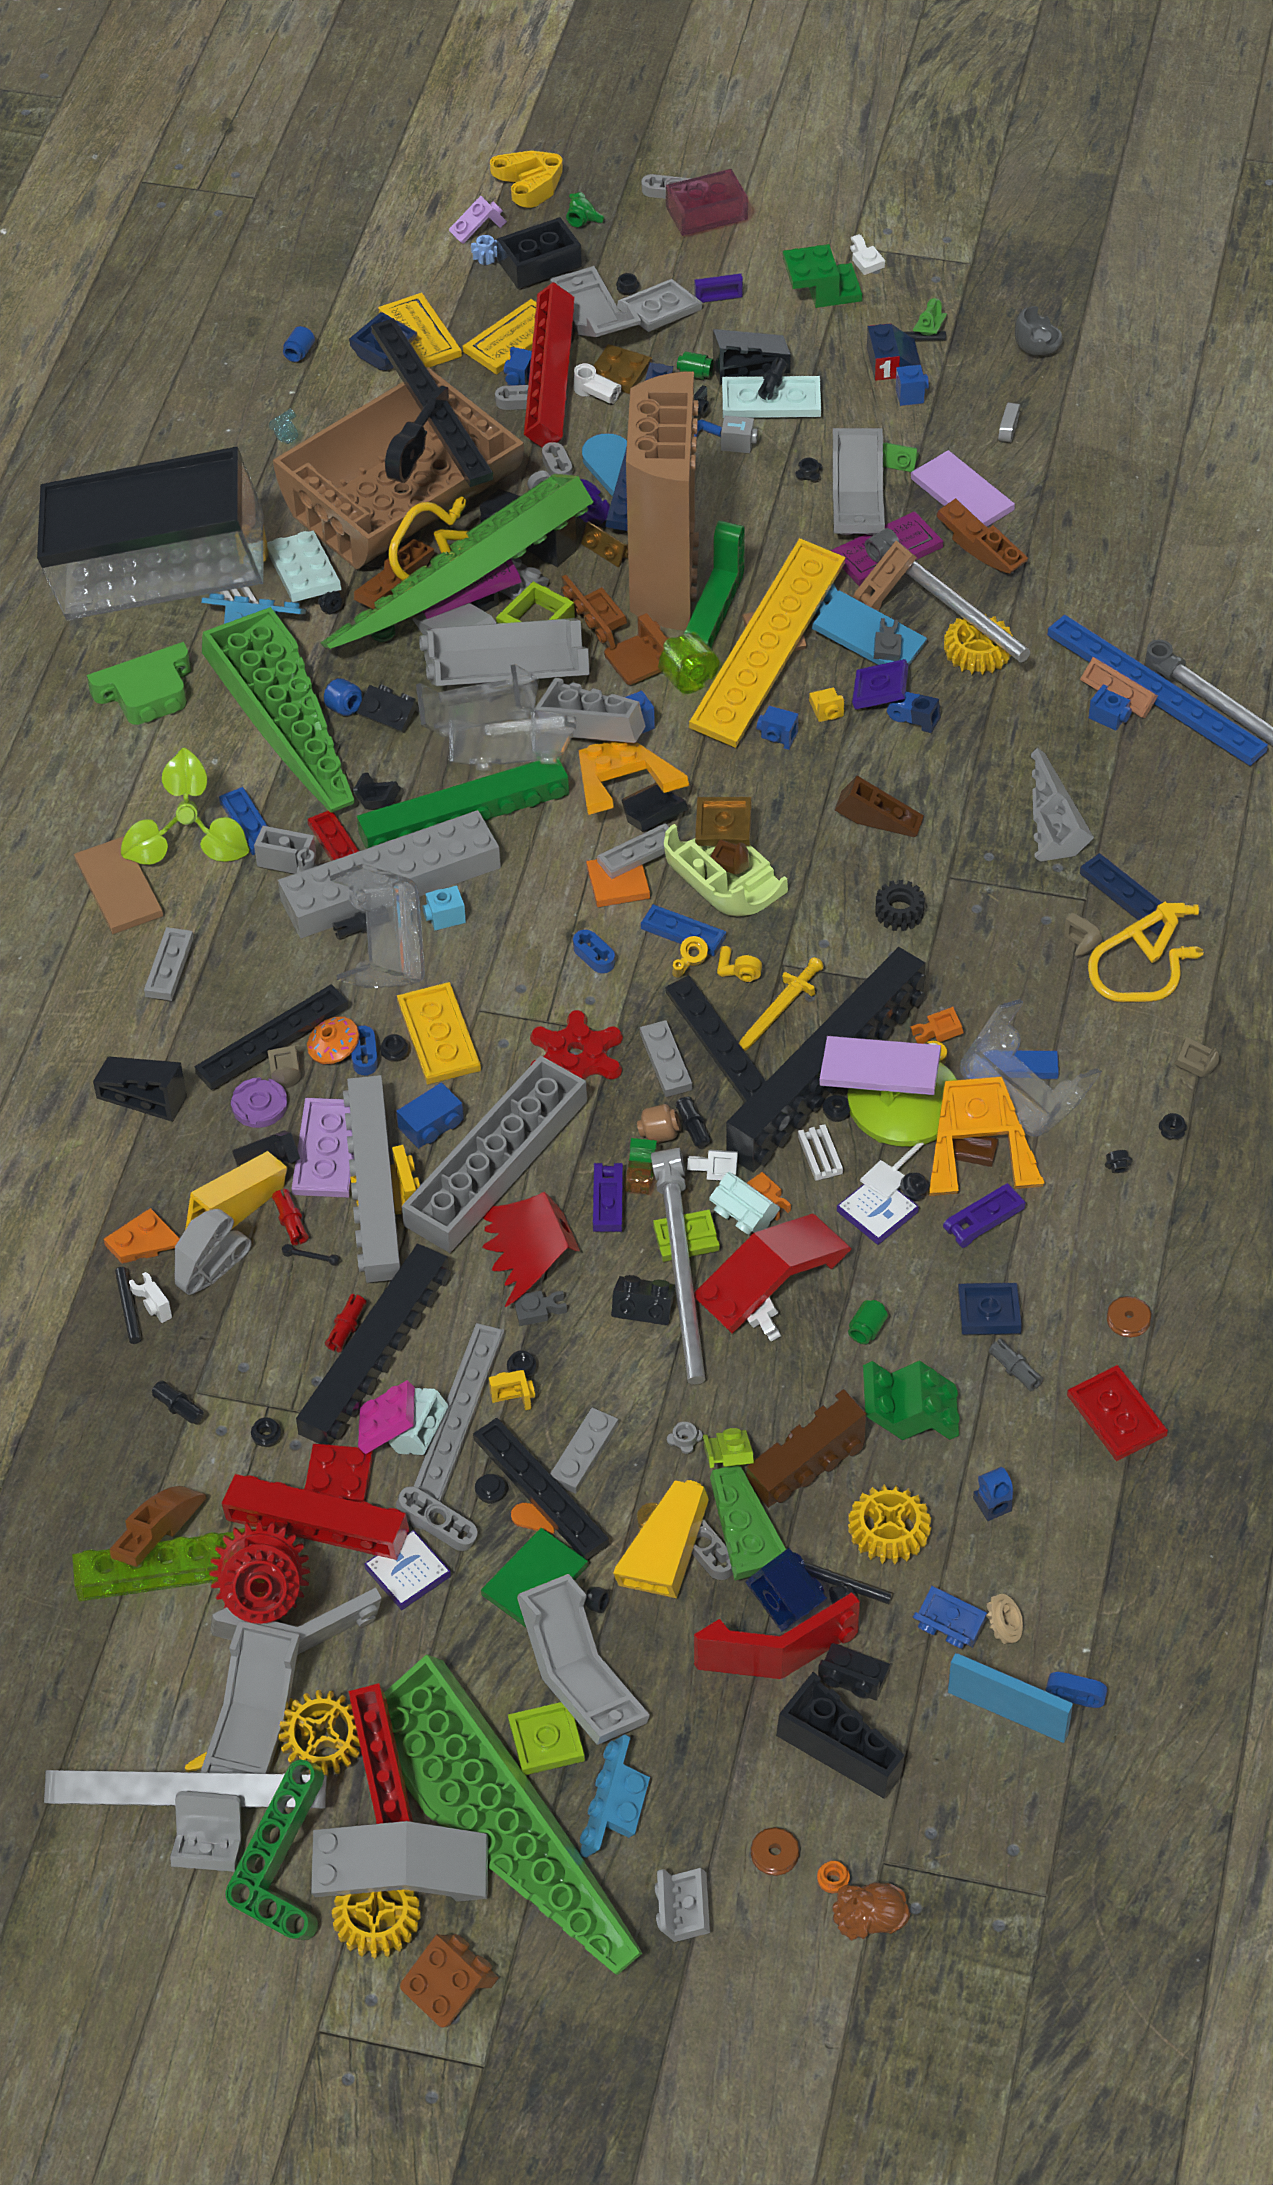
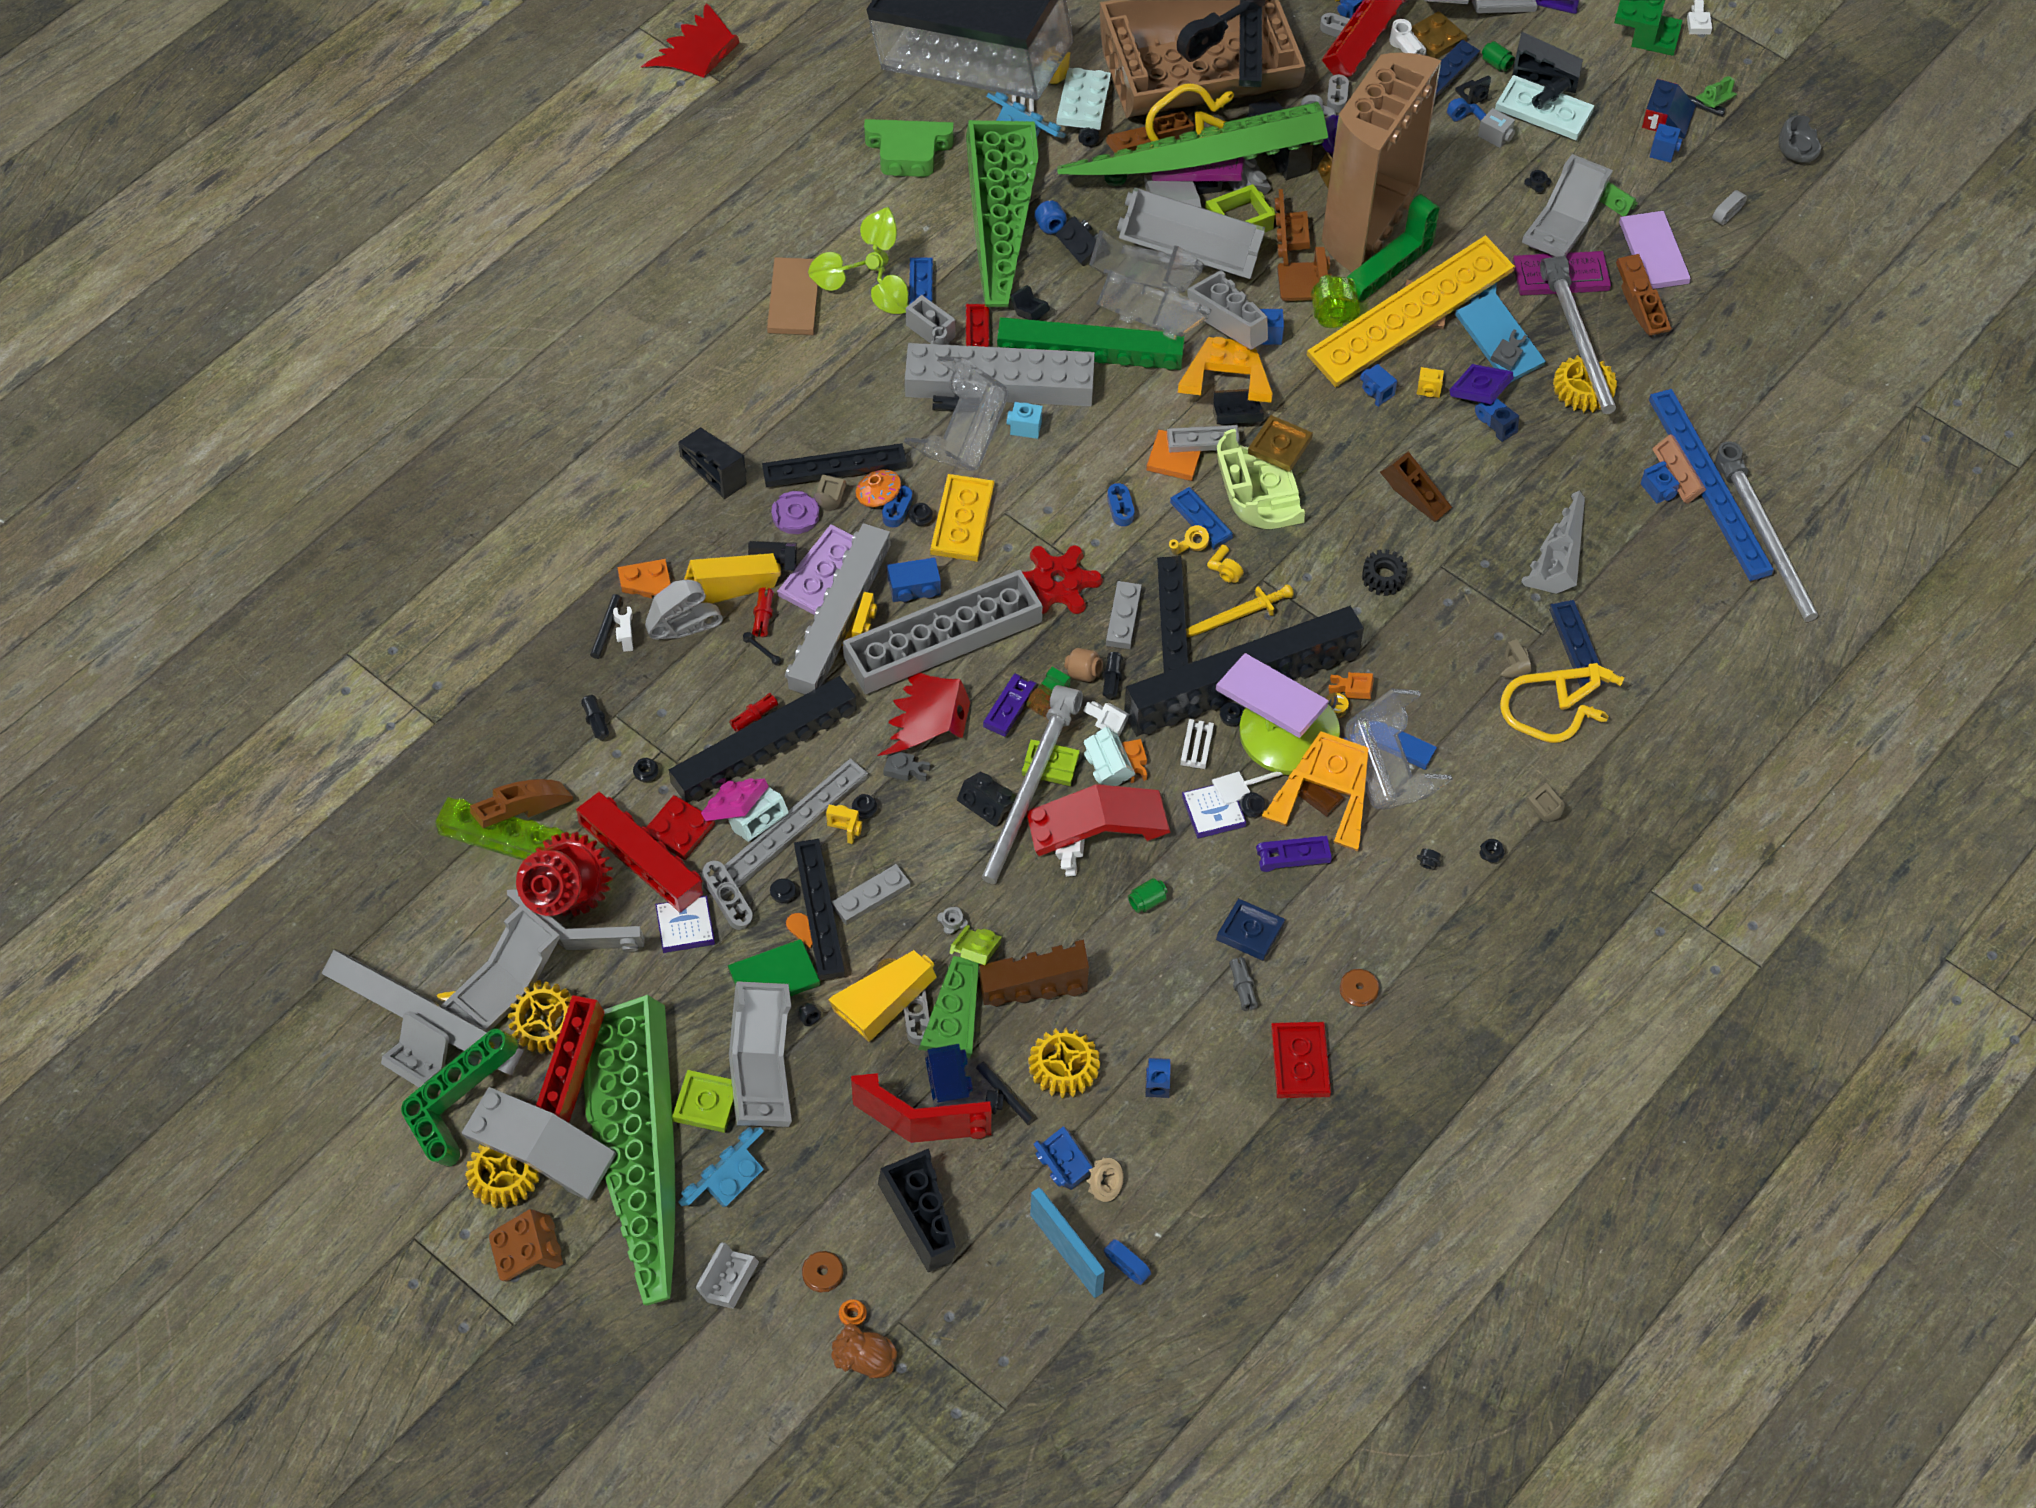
camera: 25 degrees right, 5 degrees up
(168, 964) = (792, 374): light grey plate -> none
(731, 857) = (1267, 475): reddish brown plate -> none
(853, 1672) = (966, 1163): black bracket -> none
(885, 575) = (1539, 295): medium nougat plate -> none
(911, 1400) = (1138, 973): green bracket -> none

